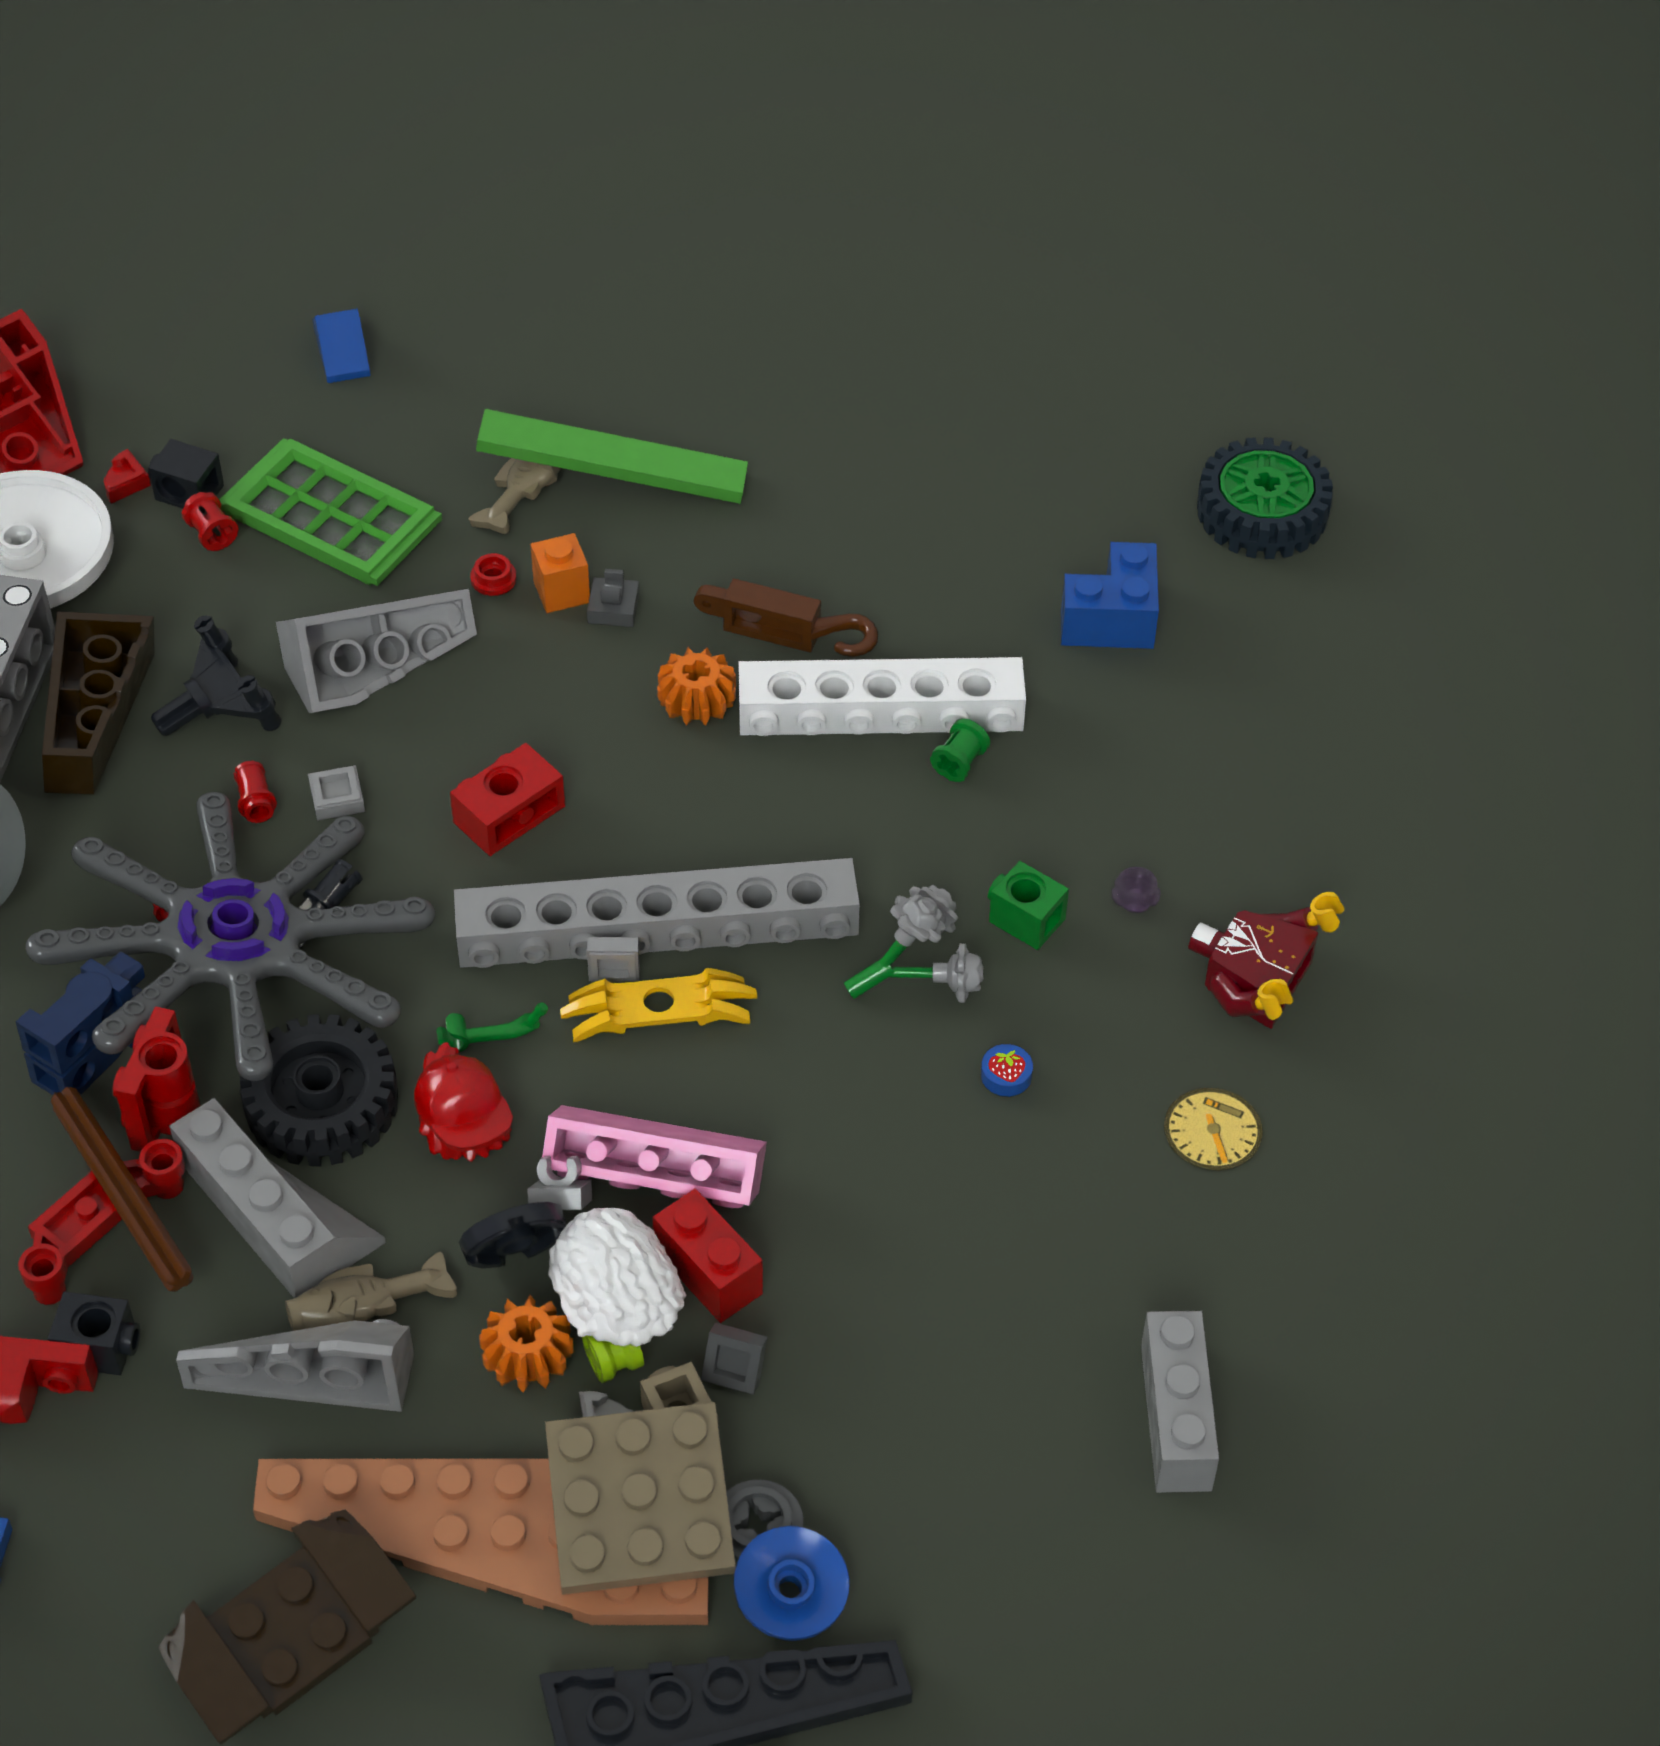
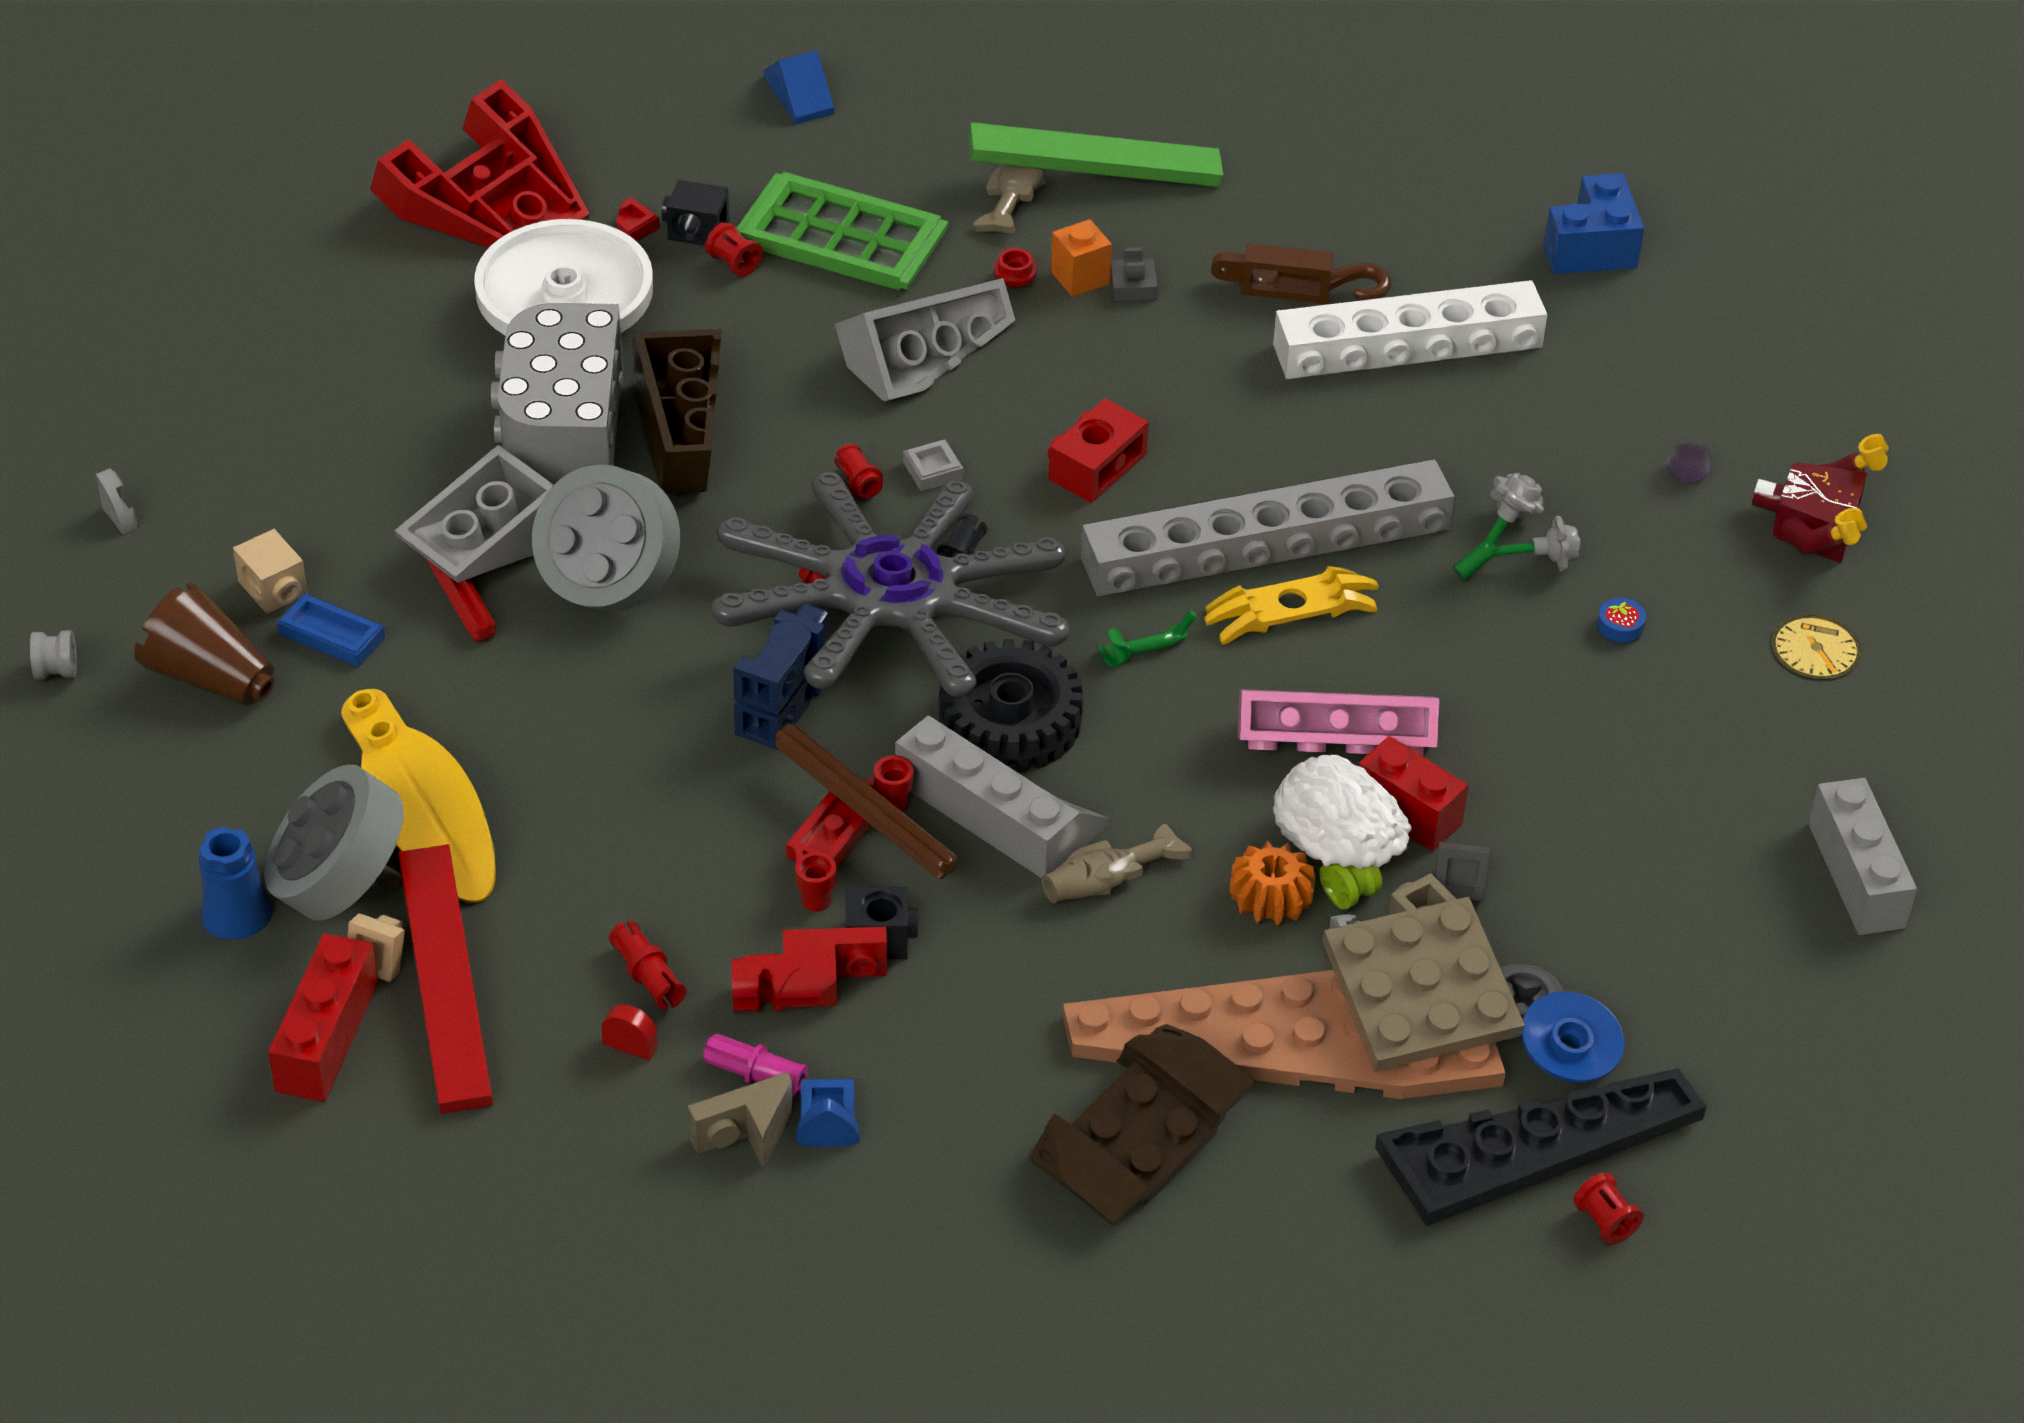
camera: 10 degrees left, 5 degrees down
(157, 1081) = (870, 709): red plate -> none
(217, 687) = (797, 386): black axle -> none
(326, 1364) = (1093, 922): light grey wedge -> none
(460, 1106) = (1146, 702): red hair -> none
(522, 1228) = (1236, 793): black tile -> none
(565, 1191) = (1262, 756): light grey tile -> none
(613, 959) = (1241, 567): light grey tile -> none
(696, 686) = (1238, 339): orange gear -> none
(960, 749) = (1492, 372): green bush -> none
(1027, 904) = (1598, 483): green brick -> none
(1264, 498) = (1701, 130): black wheel -> none

